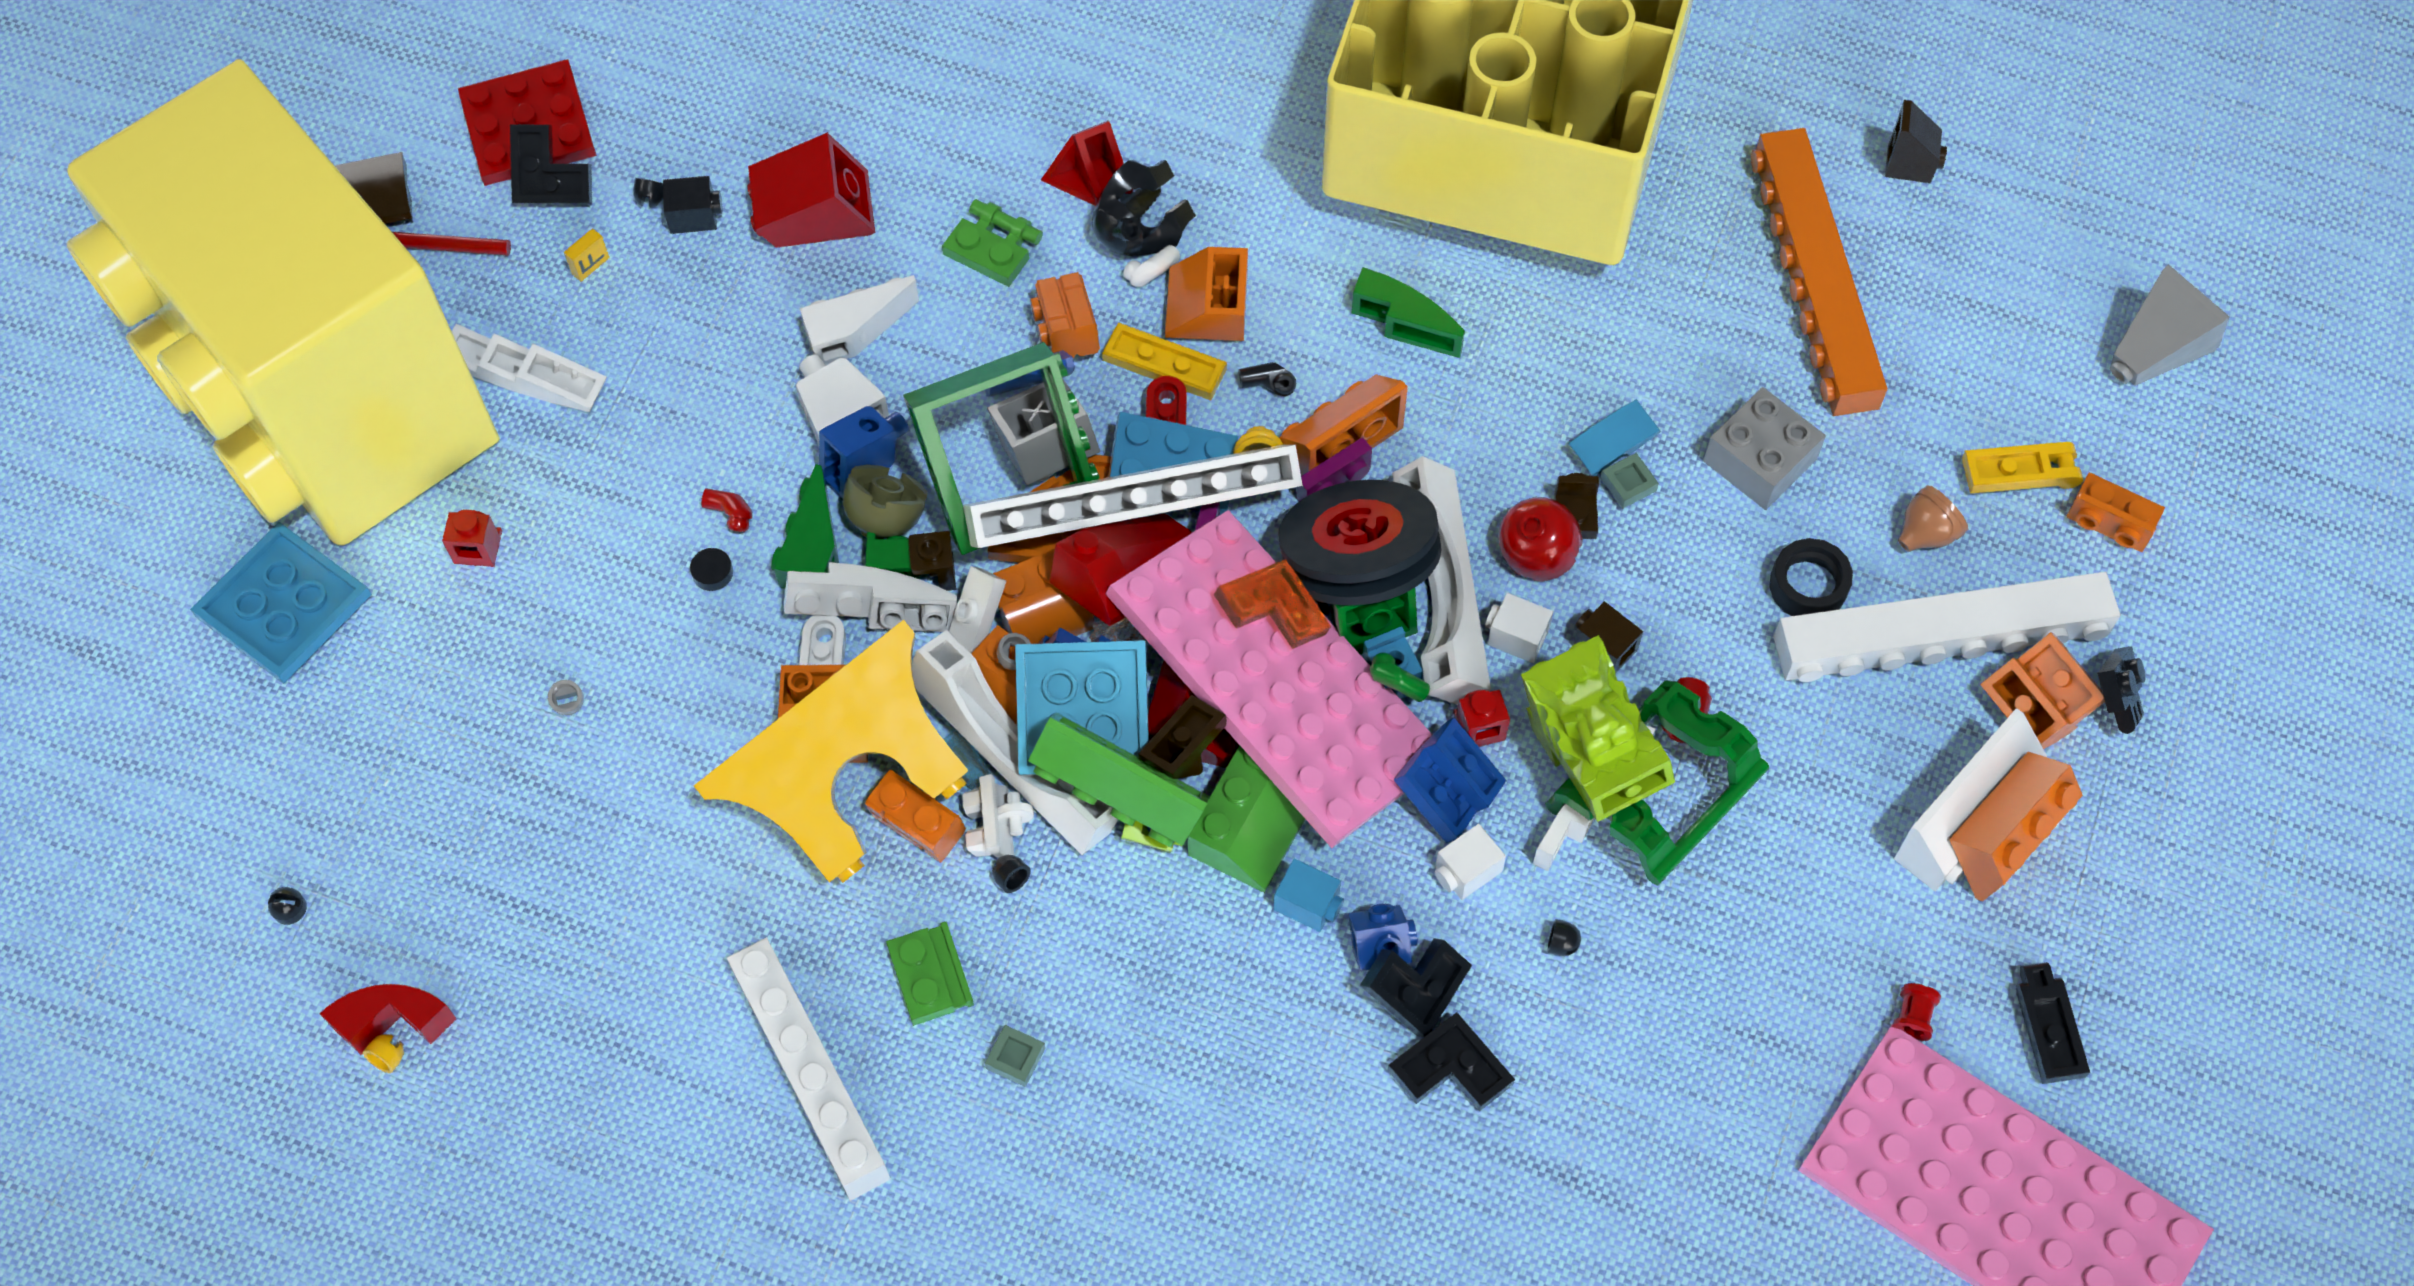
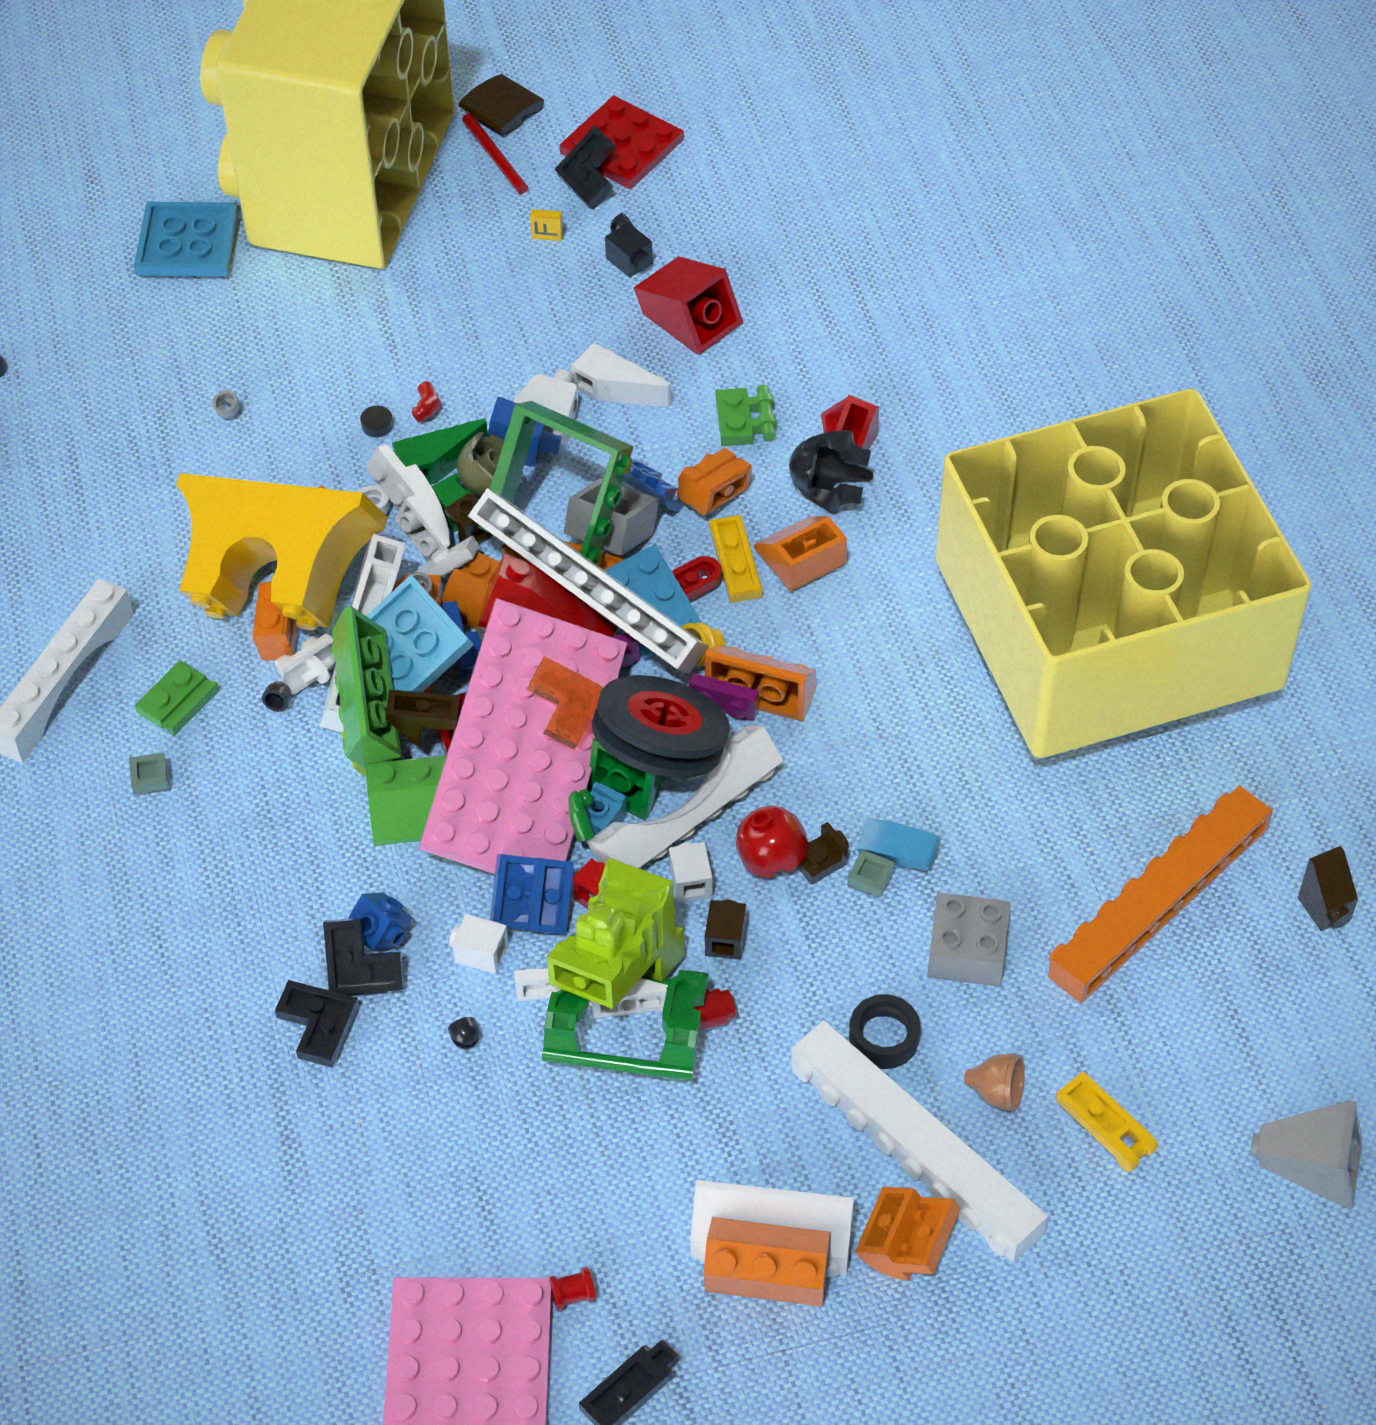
camera: 55 degrees right, 10 degrees down
(471, 529) = (299, 294): red brick -> none
(529, 371) = (439, 246): white slope -> none
(1143, 273) = (794, 506): white arm -> none
(1270, 376) = (774, 620): black arm -> none
(1308, 896) = (382, 864): dark azure brick -> none
(1407, 313) = (889, 663): green slope -> none
(2115, 512) = (1124, 1208): orange bracket -> none
(2120, 682) = (953, 1281): black hinge -> none

